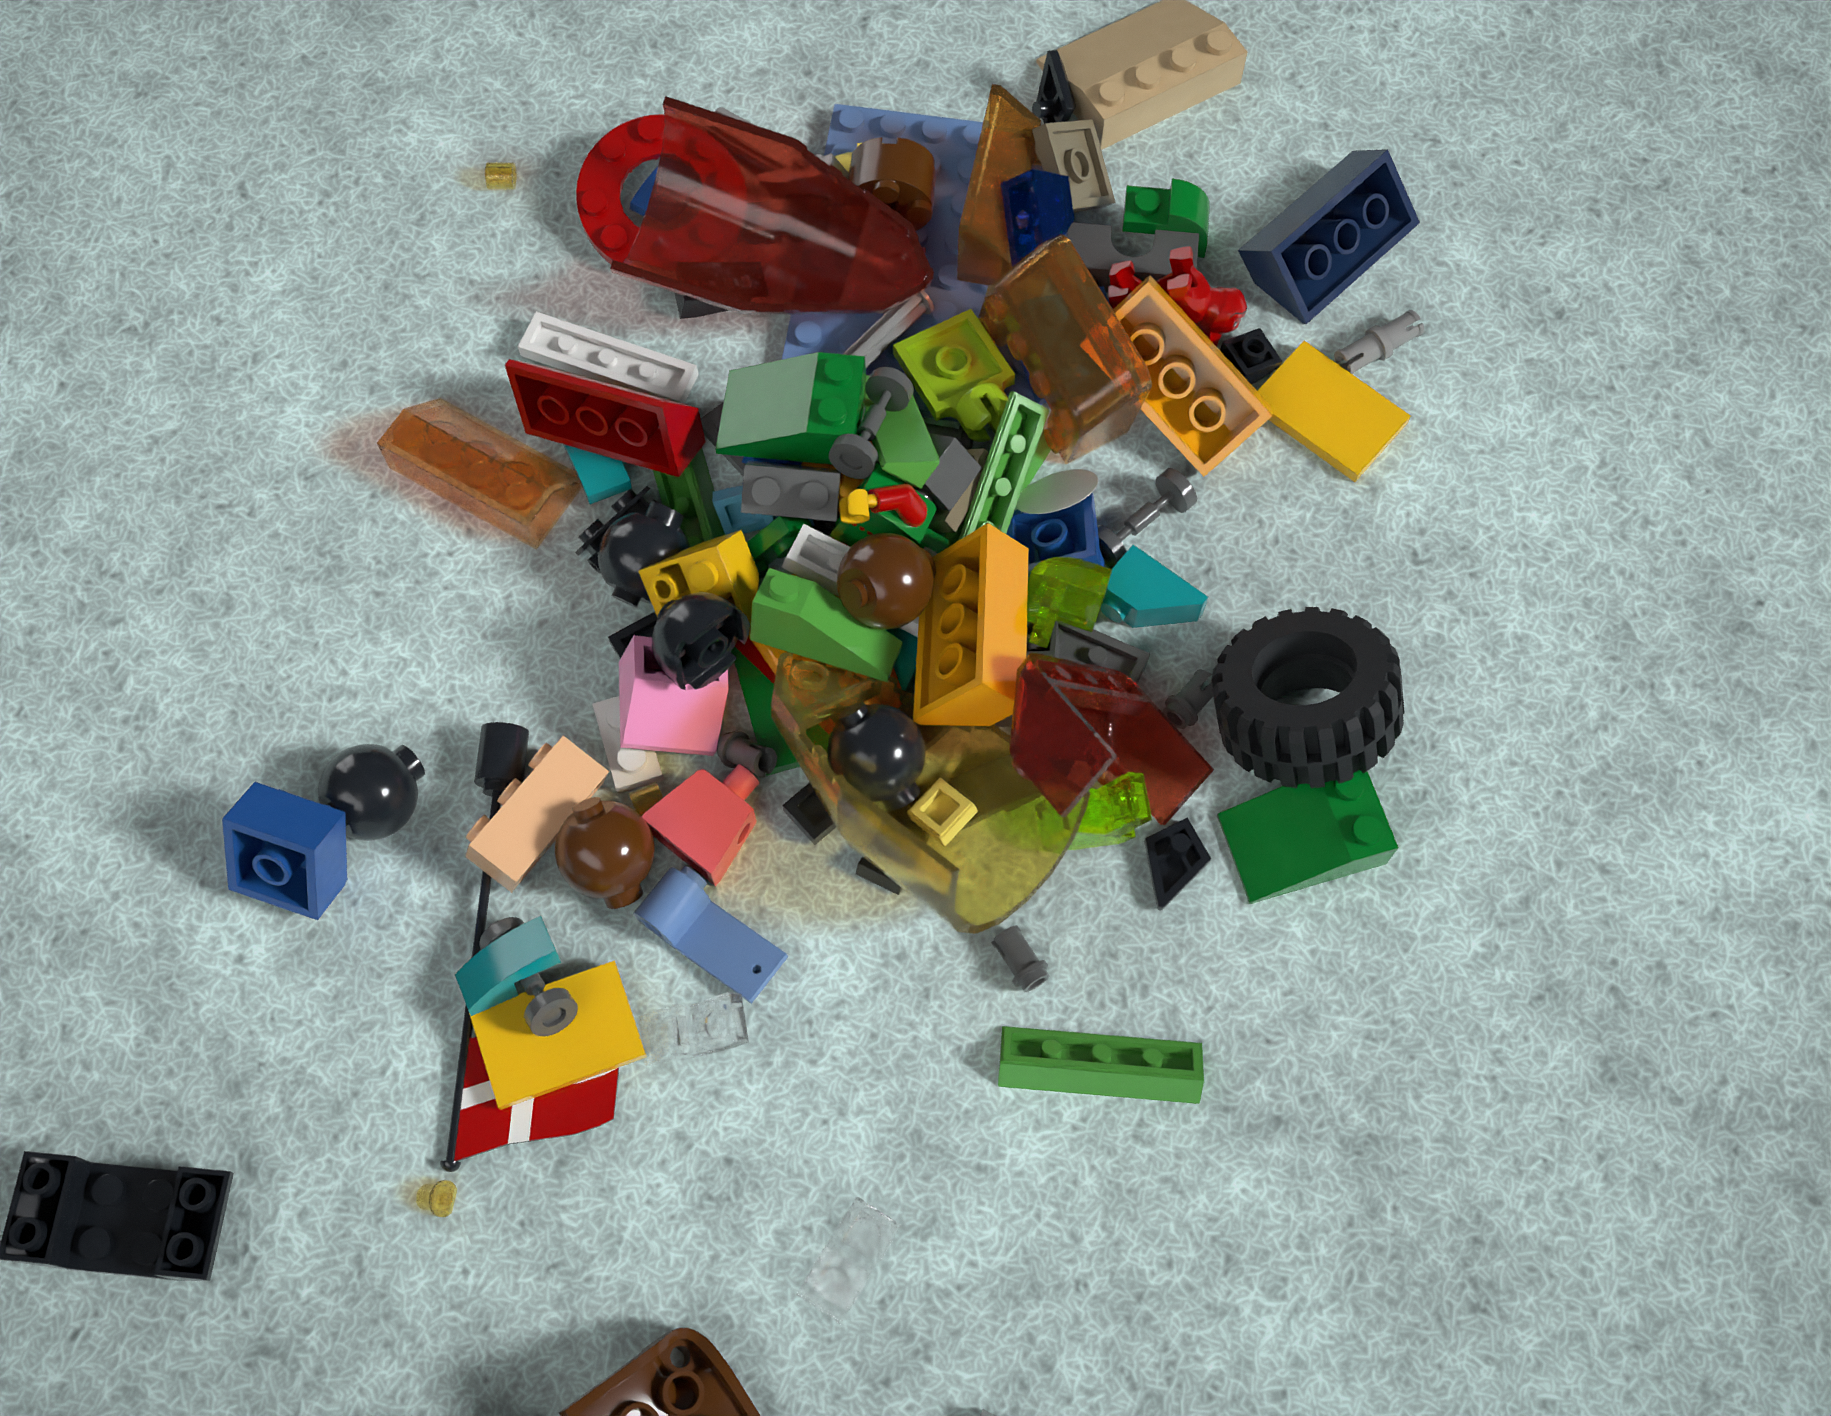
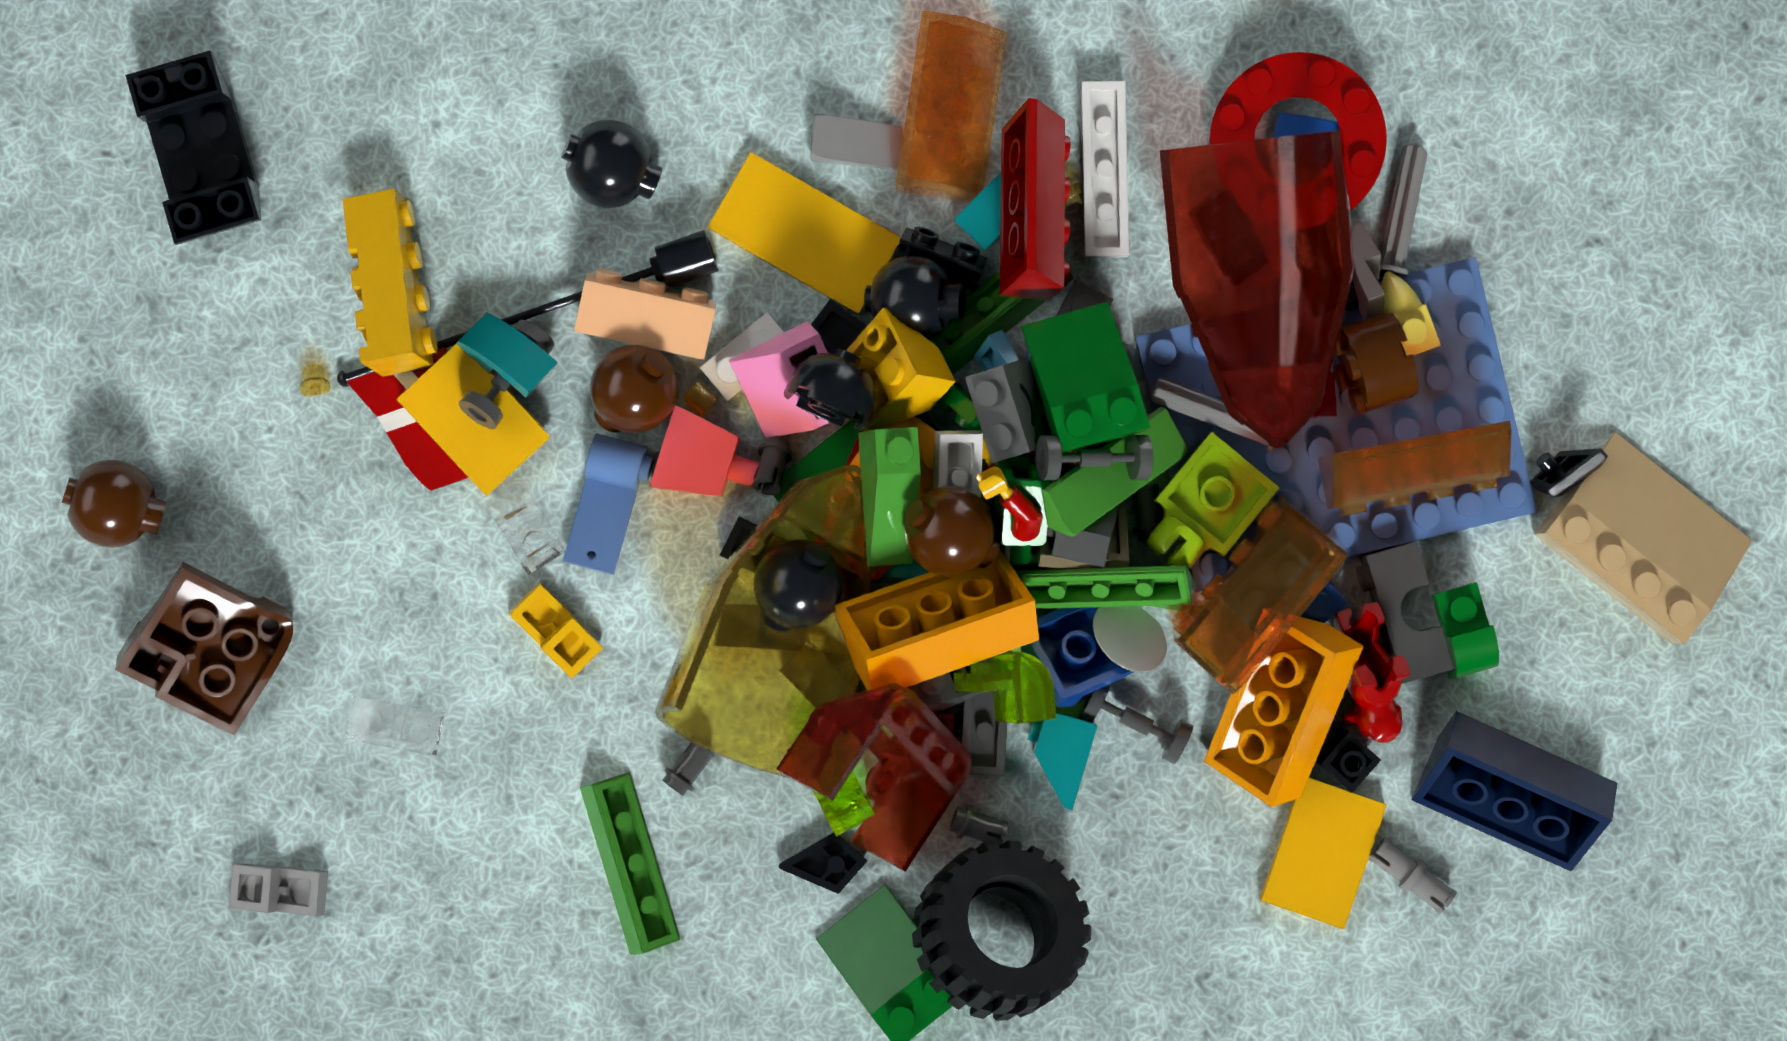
camera: 65 degrees right, 20 degrees up
(285, 850) = (527, 126): blue brick -> none
(372, 1062) = (388, 283): none -> yellow wedge
(469, 565) = (855, 142): none -> light grey slope
(532, 643) = (803, 232): none -> yellow tile
(819, 1042) = (555, 630): none -> yellow slope
(942, 811) = (779, 656): light yellow tile -> none
(1035, 210) = (1388, 517): clear blue slope -> none
(1075, 151) = (1478, 524): dark tan plate -> none

